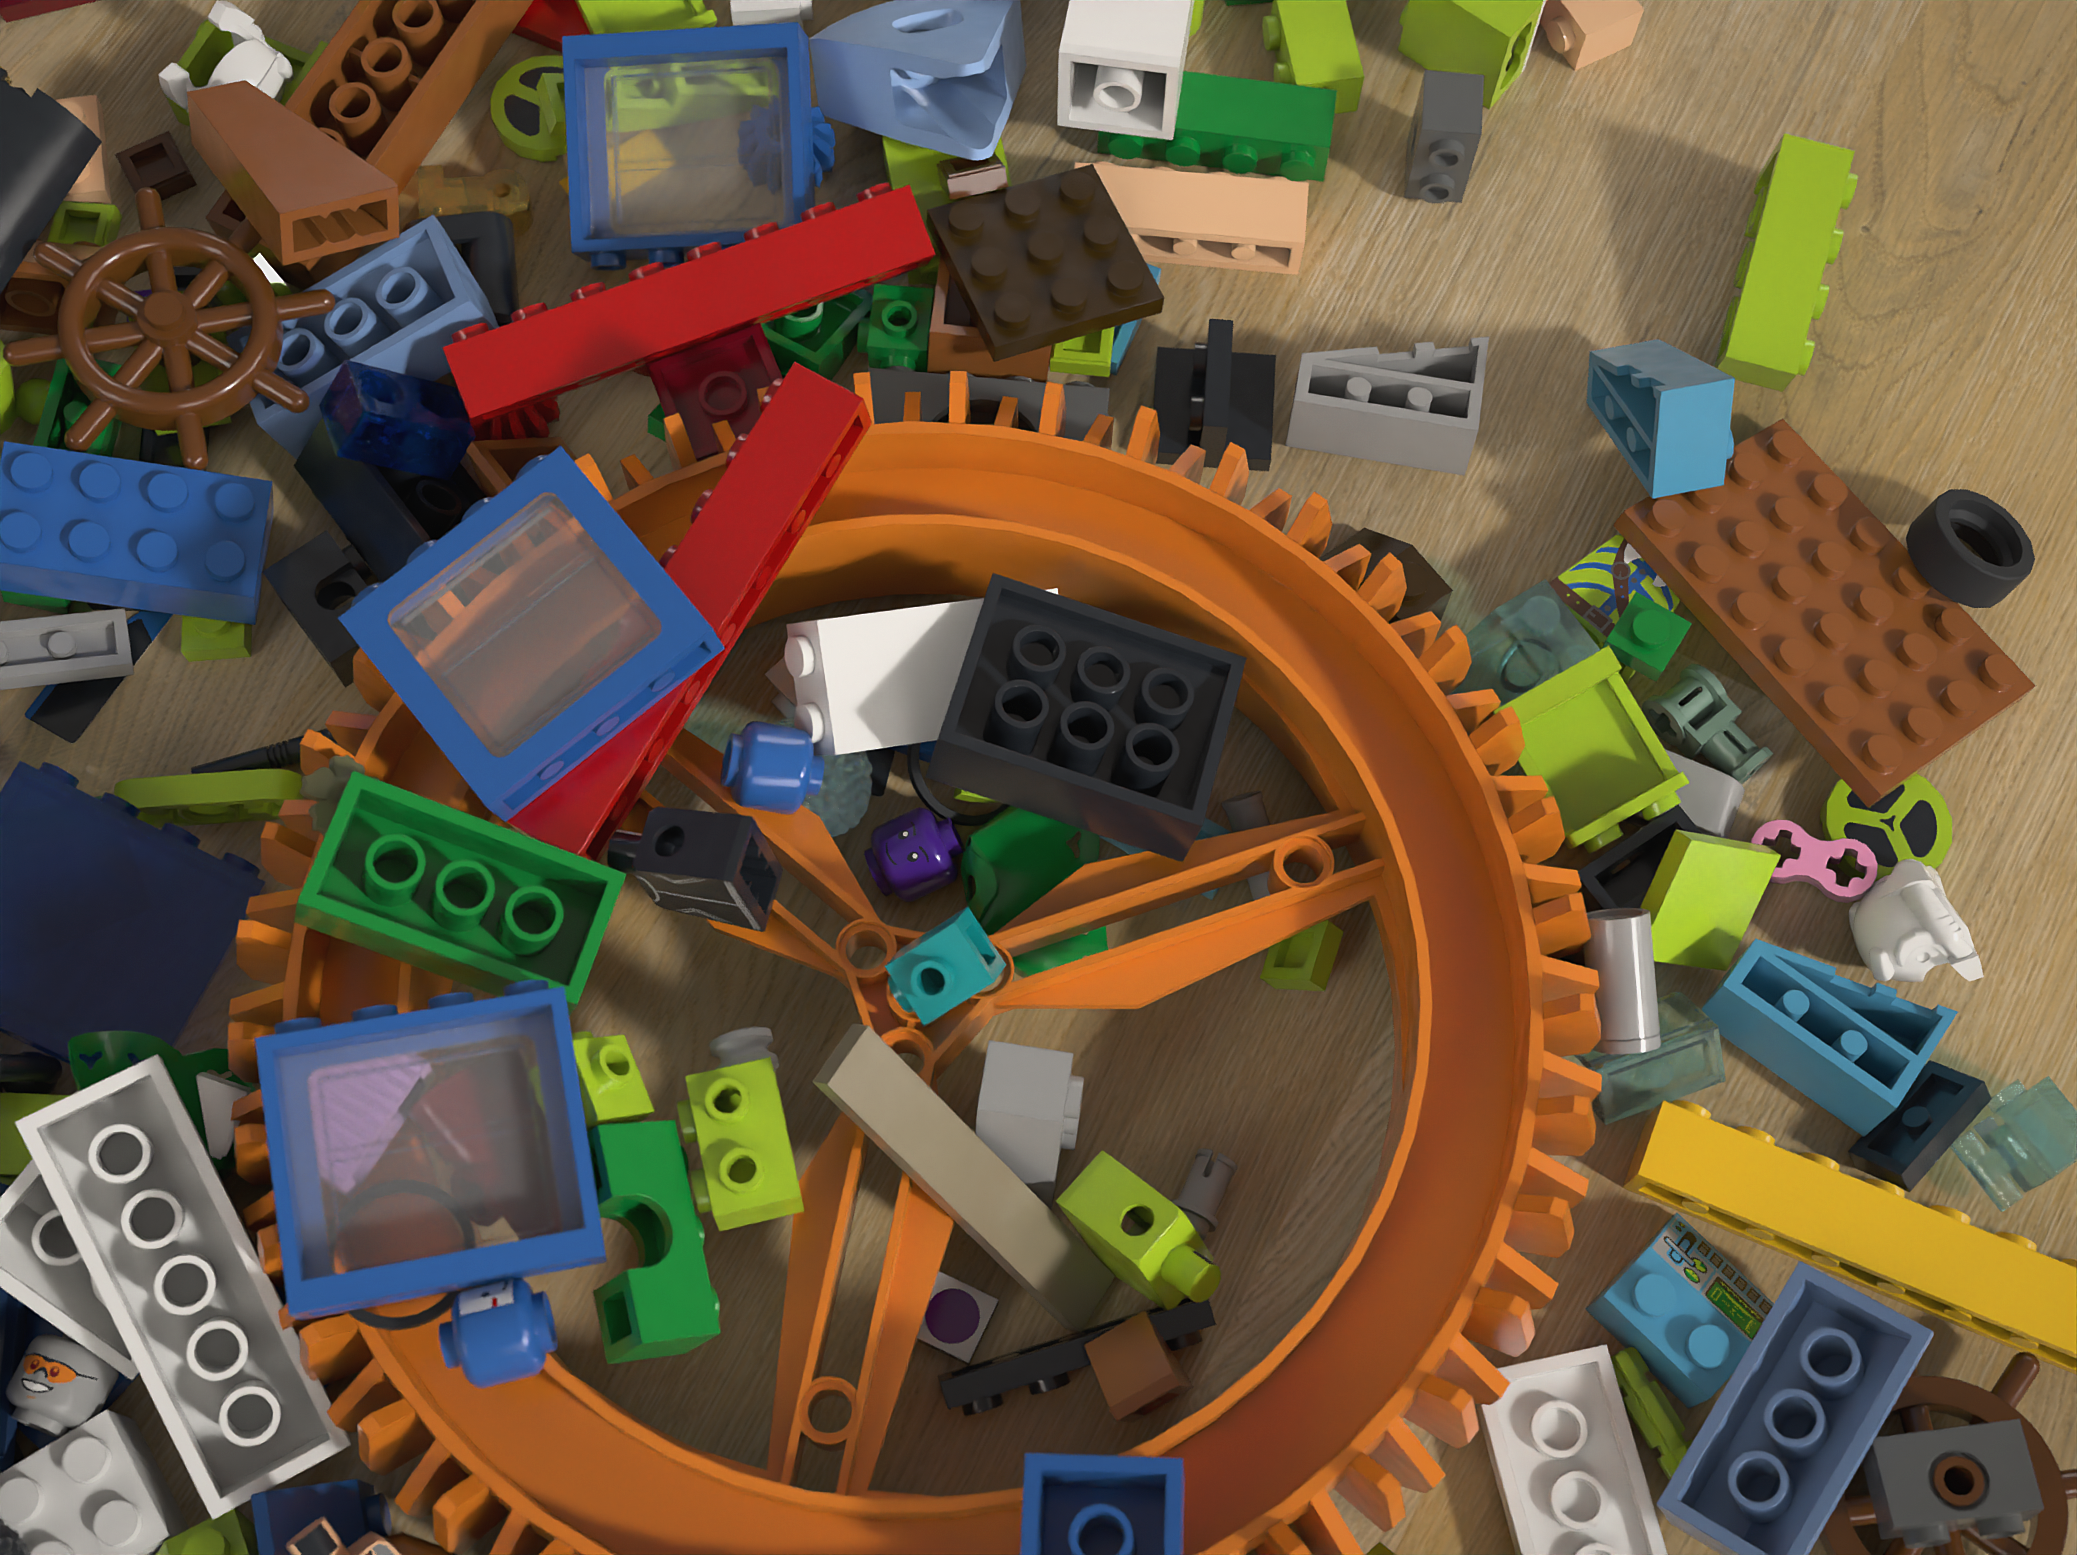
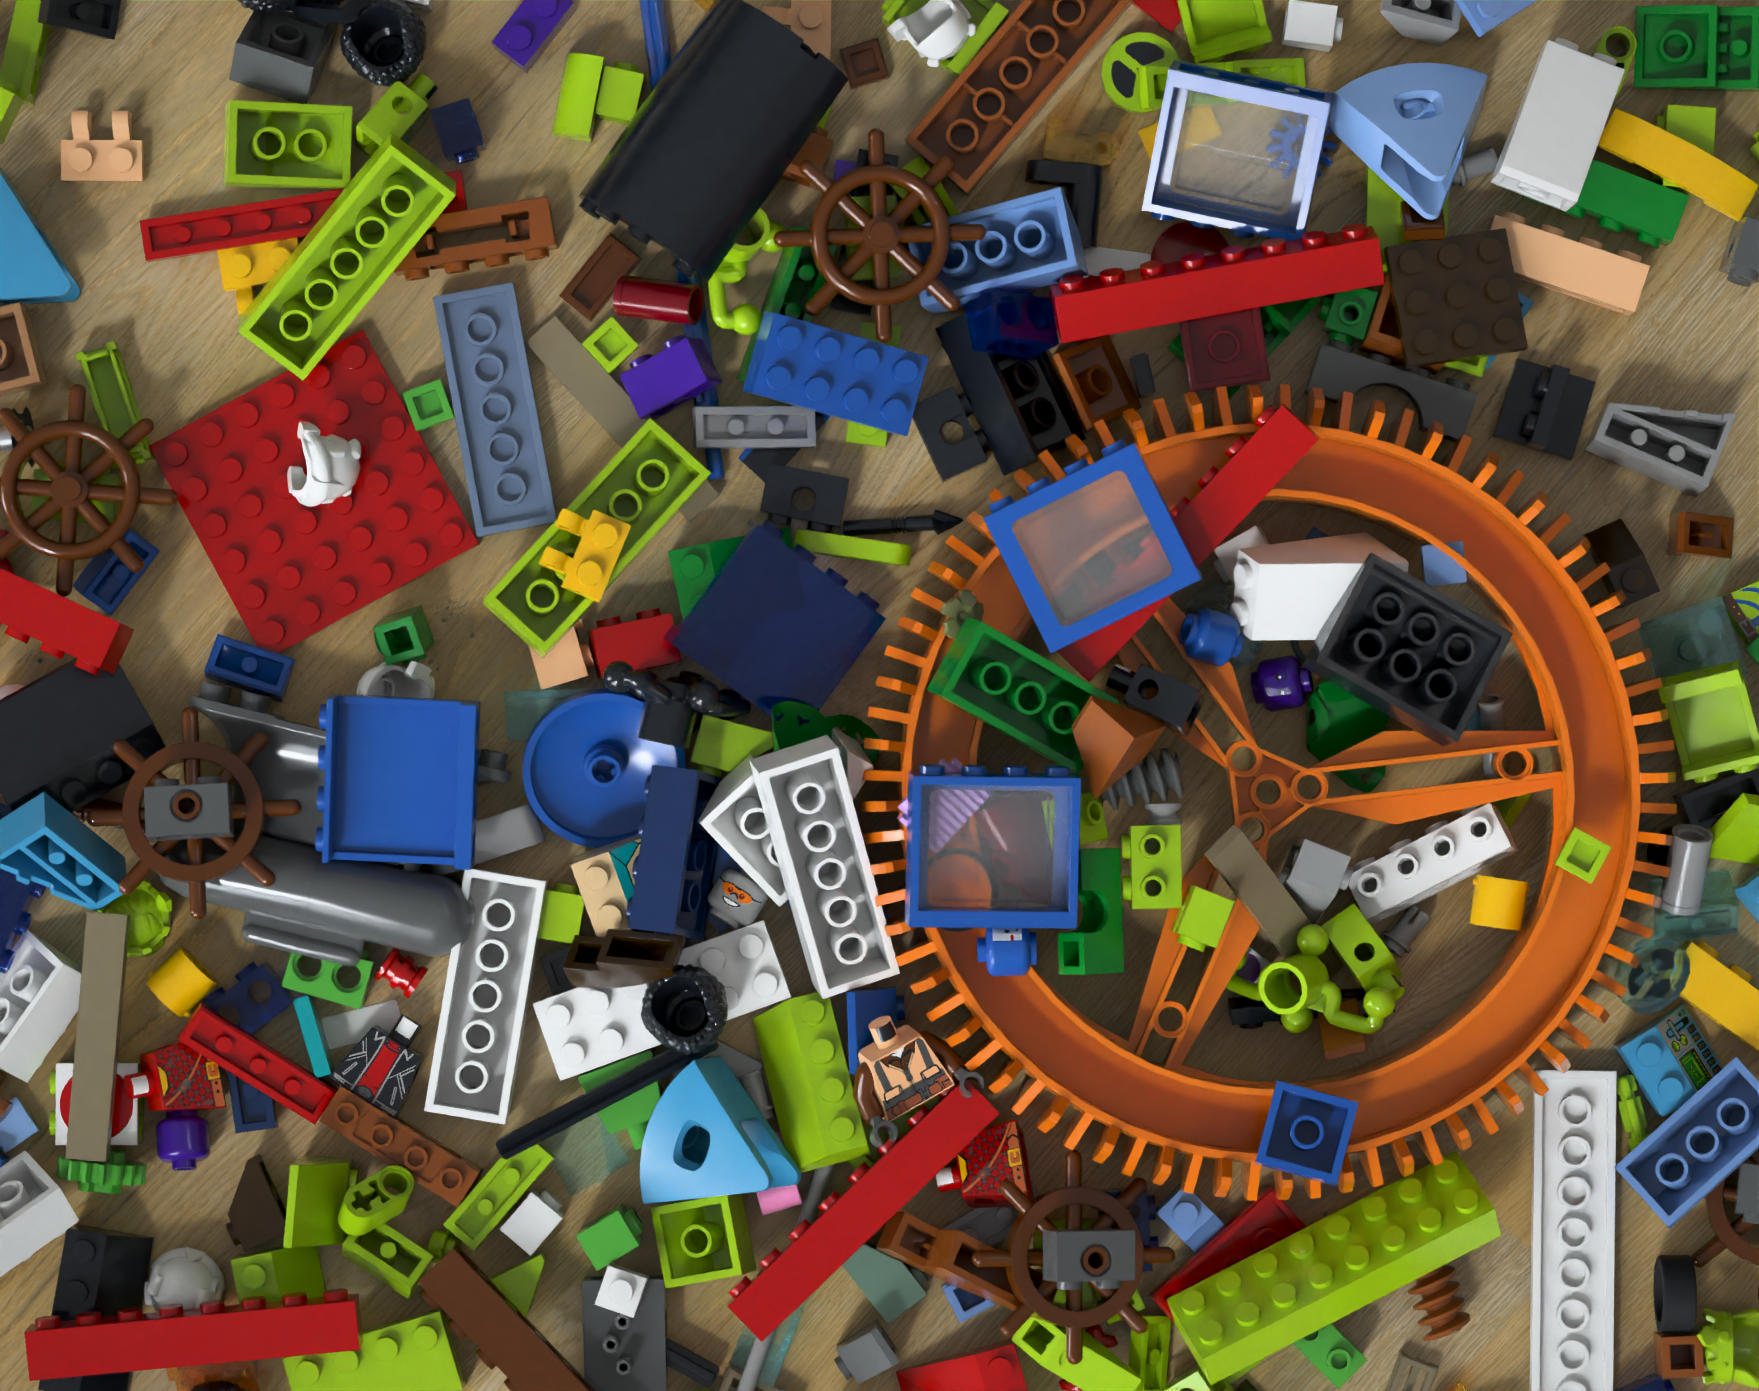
camera: 15 degrees right, 20 degrees up
(92, 724) = (785, 481): none -> black brick
(290, 177) = (970, 141): dark orange slope -> none
(608, 455) = (1142, 375): none -> black tile
(622, 933) = (1112, 741): none -> dark orange slope
(690, 1003) = (1146, 778): none -> dark grey piece
(837, 1203) = (1201, 918): none -> lime brick
(944, 967) = (1289, 791): teal brick -> none
(1031, 129) = (1476, 165): none -> light grey pin
(1070, 1307) = (1317, 991): none -> lime wheel
(1112, 588) = (1440, 568): none -> medium blue tile
(1214, 1065) = (1431, 862): none -> white brick
(1314, 51) = (1678, 163): none -> yellow slope
(1338, 1095) = (1498, 902): none -> yellow piece
(1455, 958) = (1582, 855): none -> lime plate
(1482, 520) = (1700, 535): none -> dark orange slope
(1626, 1168) = (1658, 977): none -> clear light blue tile

